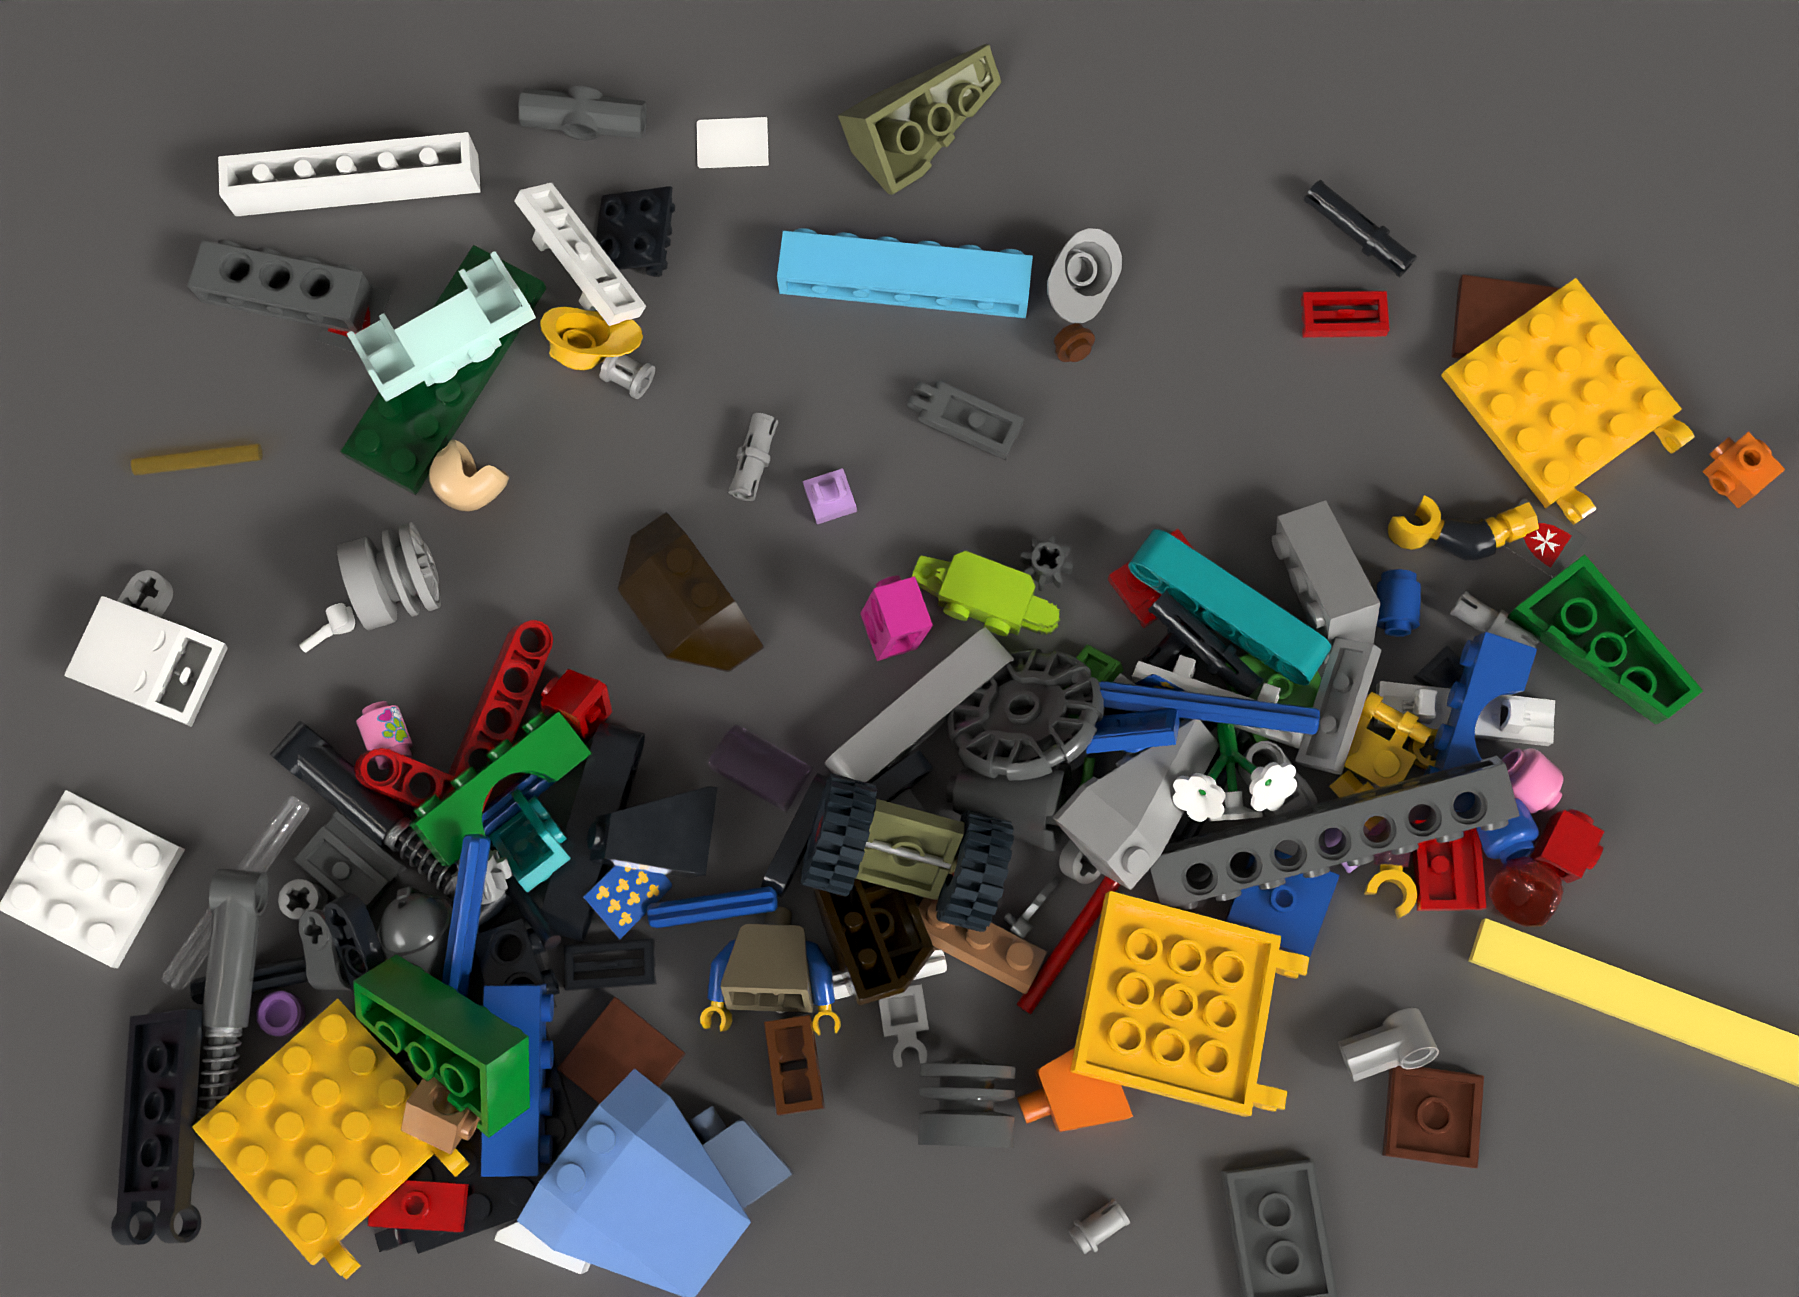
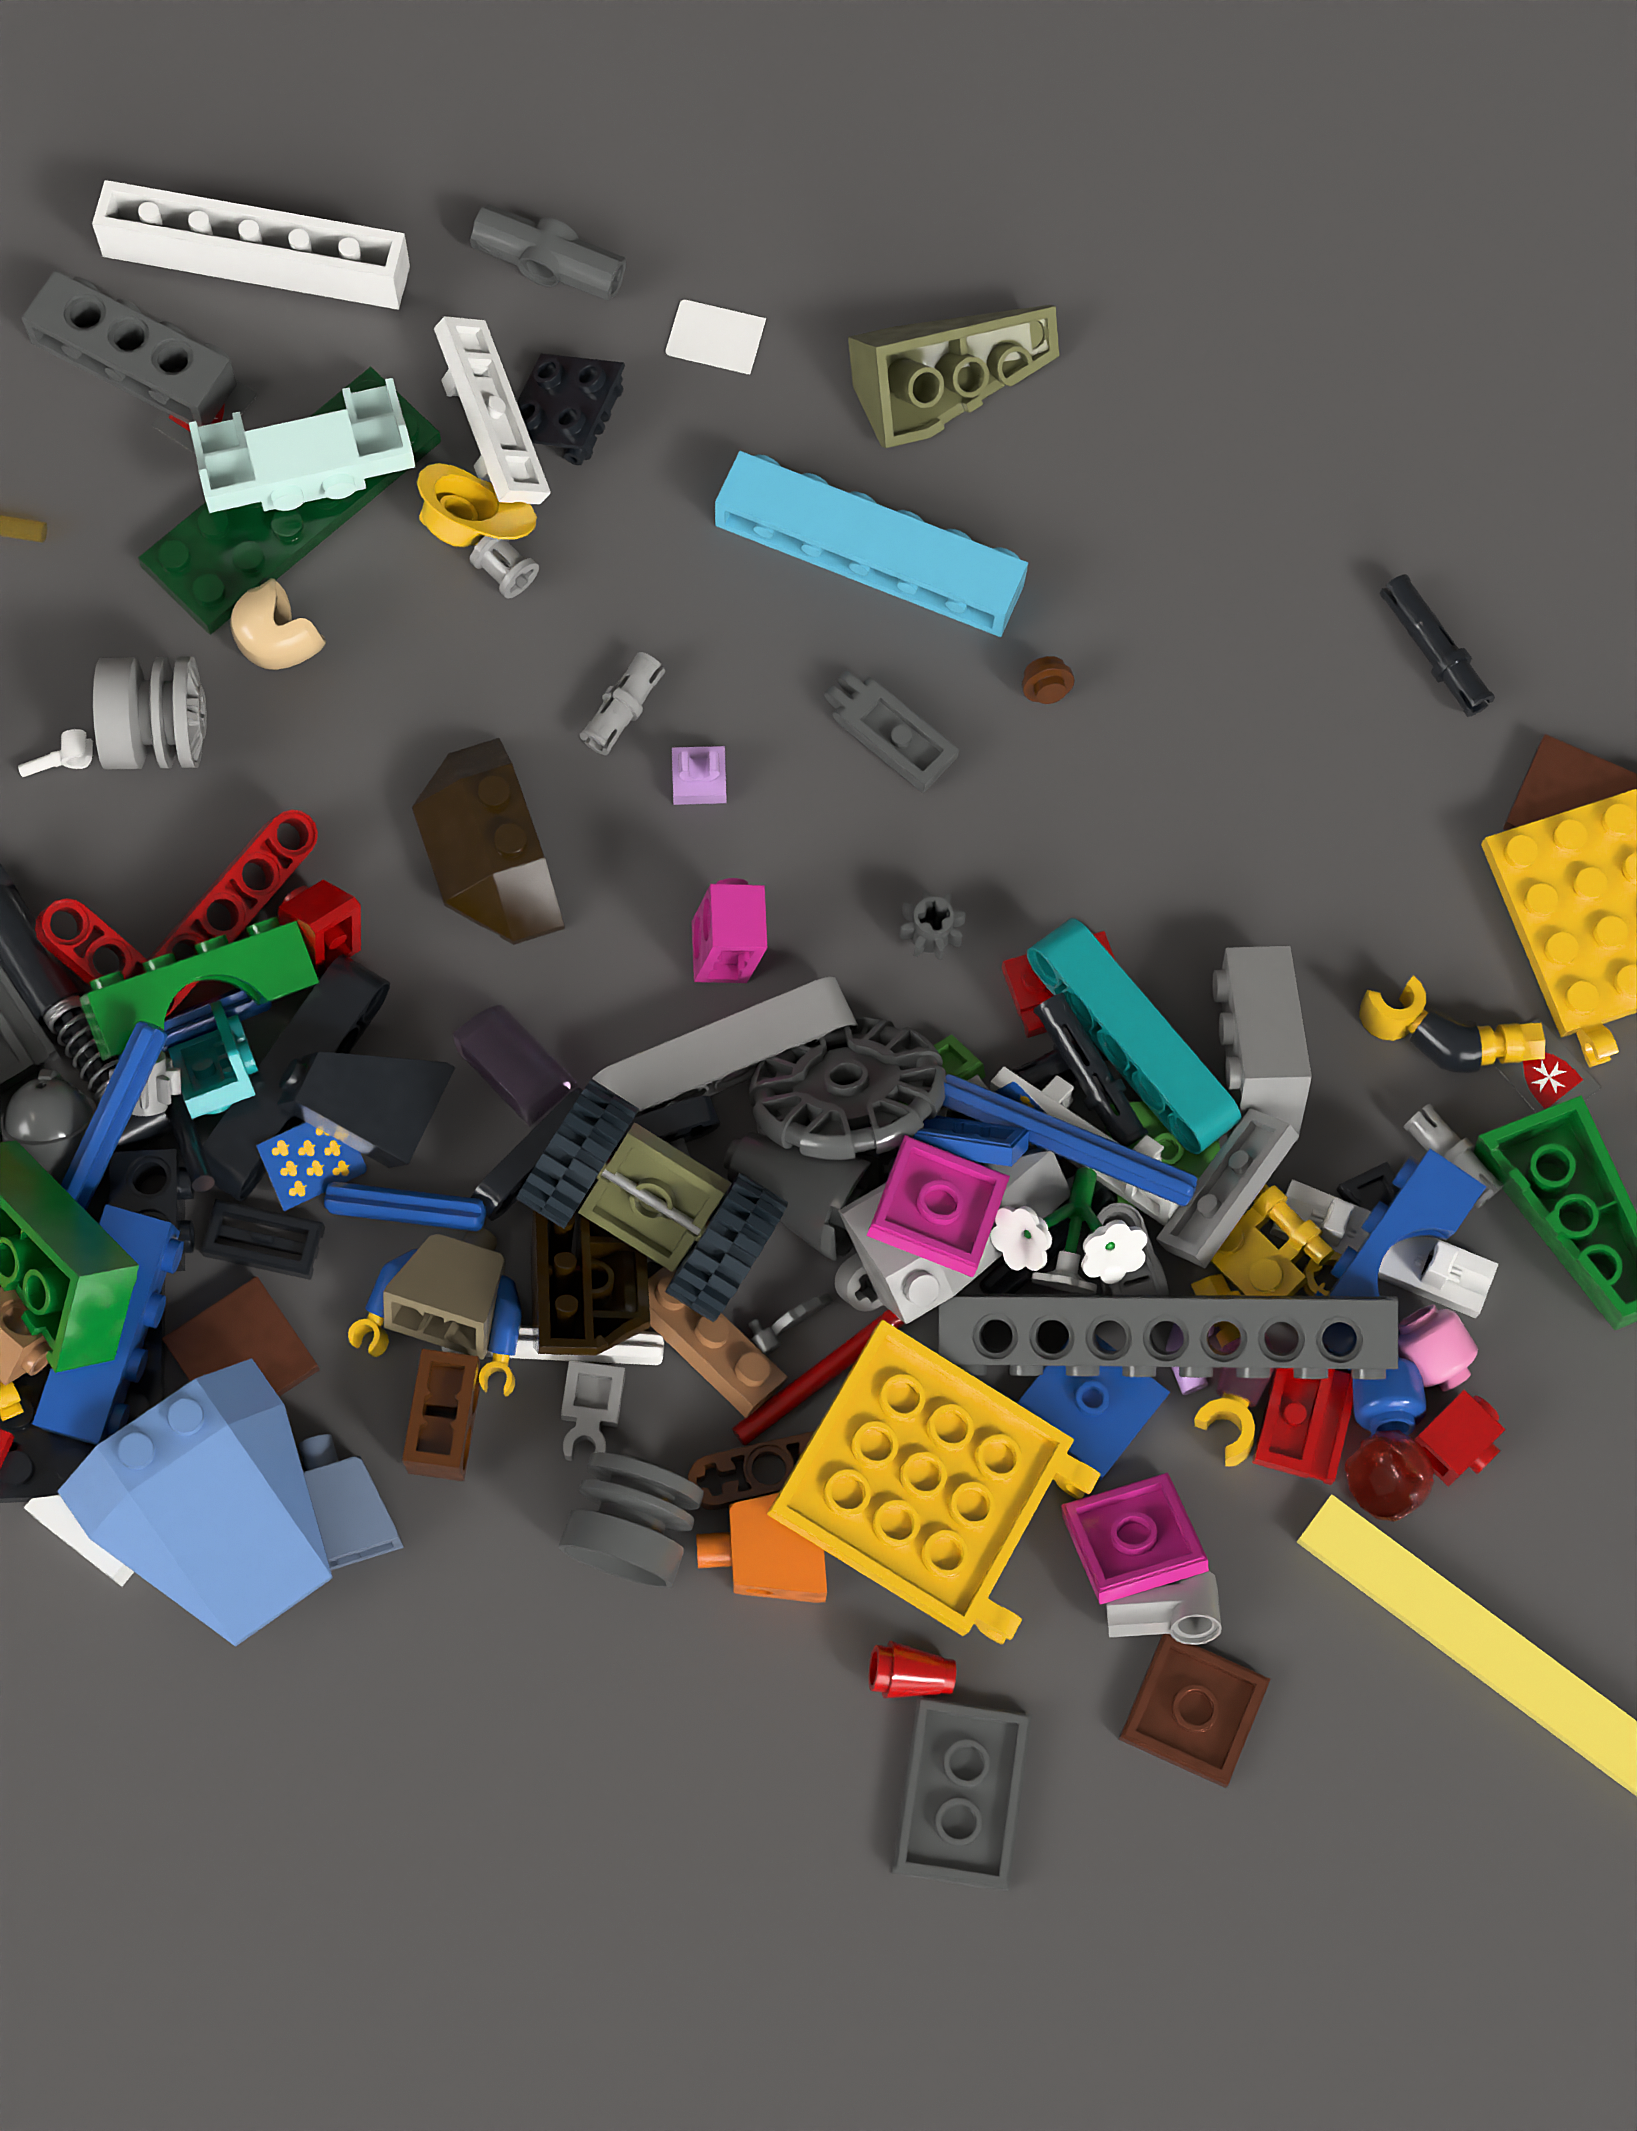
camera: 10 degrees right, 5 degrees down
(384, 728) = (89, 883): bright pink brick -> none
(986, 593) = (848, 939): lime hinge -> none
(1019, 1034) = (749, 1454): none -> reddish brown beam
(1084, 275) = (1083, 603): light grey piece -> none
(1098, 1226) = (746, 1715): light grey pin -> none
(1129, 792) = (938, 1206): none -> dark pink tile
(1211, 1154) = (909, 1672): none -> red cone
(1350, 999) = (1134, 1538): none -> dark pink tile
(1355, 298) = (1381, 758): red tile -> none
(1399, 602) = (1343, 1093): blue brick -> none

